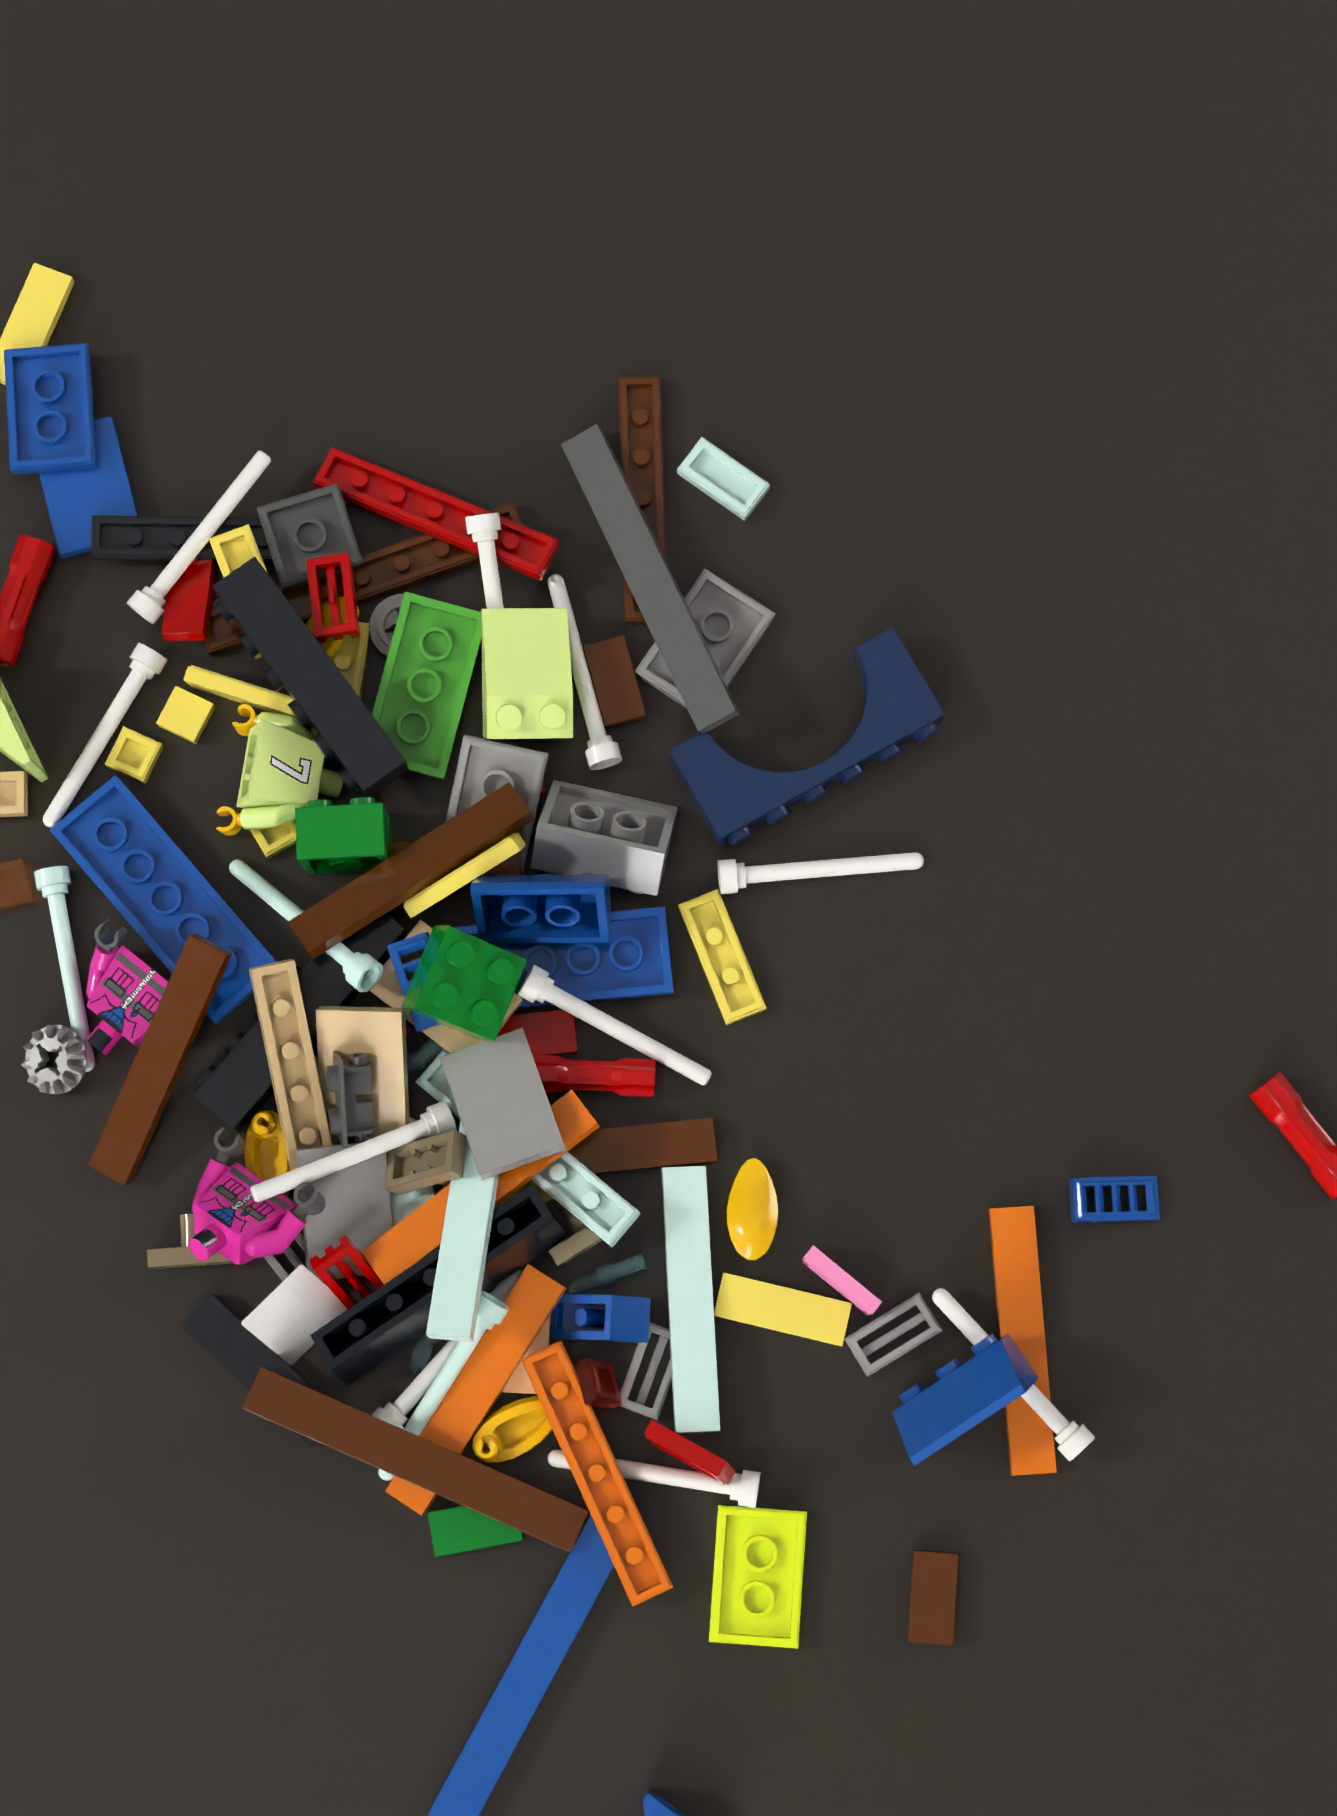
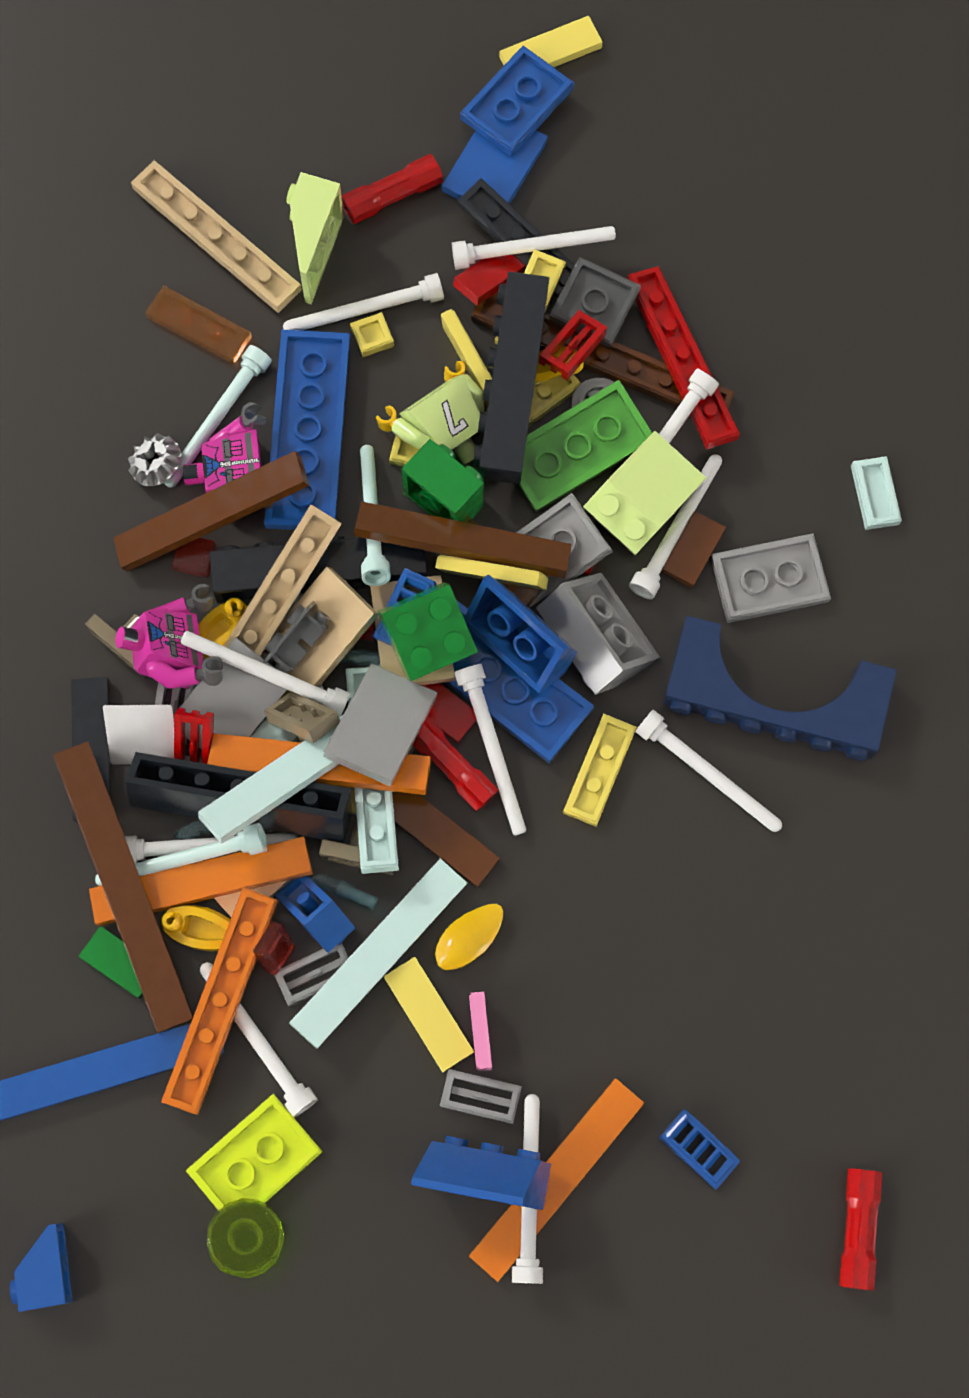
camera: 40 degrees right, 5 degrees down
(181, 1112) = (194, 557): none -> clear red tile
(185, 714) = (424, 339): light yellow tile -> none
(642, 461) = (814, 461): reddish brown tile -> none
(650, 579) = (772, 509): dark grey tile -> none
(689, 1453) = (286, 1043): red tile -> none
(814, 1646) = (245, 1238): none -> clear neon green tile
(932, 1597) = (346, 1282): reddish brown tile -> none

